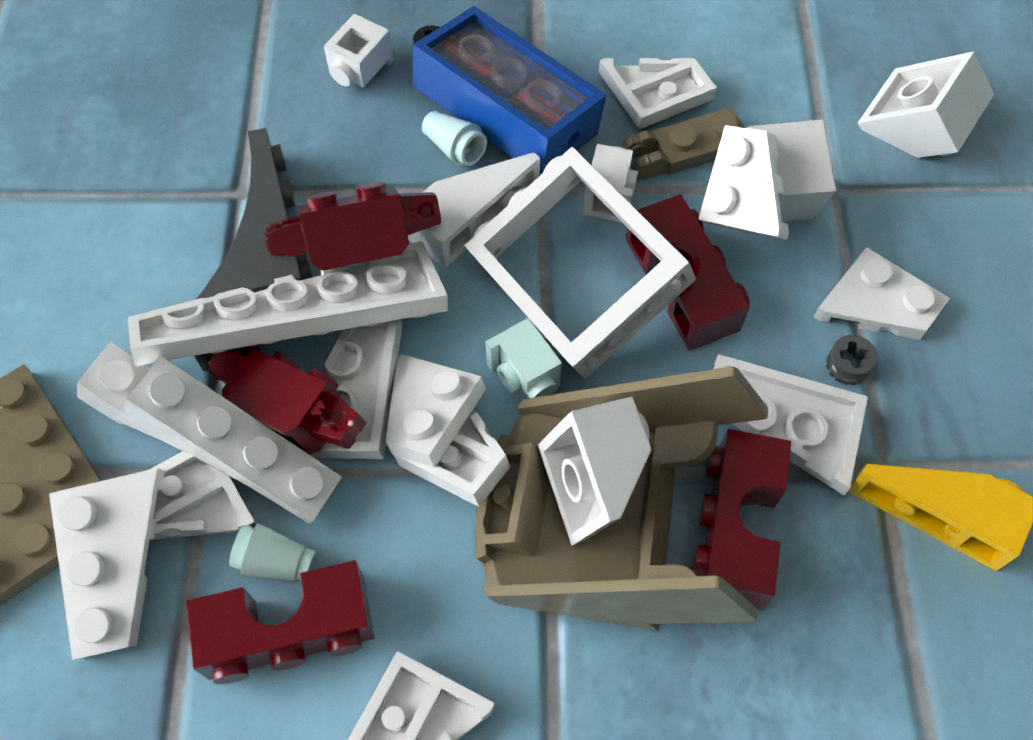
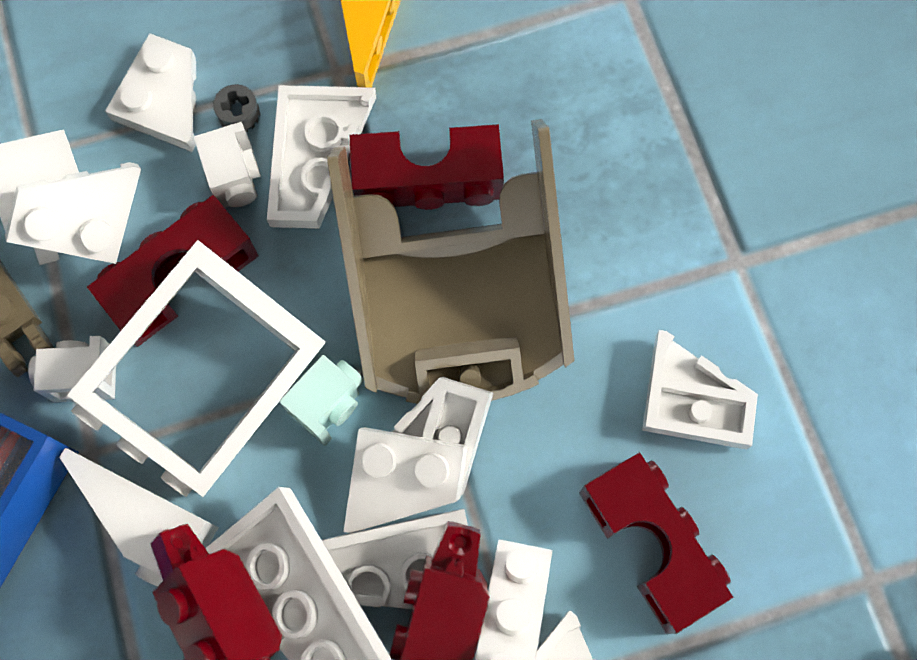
camera: 105 degrees left, 10 degrees up
(269, 555) = (596, 582): light aqua cone -> none
(455, 137) = (39, 568): light aqua cone -> none
(595, 464) = (435, 284): white slope -> none
(784, 334) = (229, 164): none -> white brick

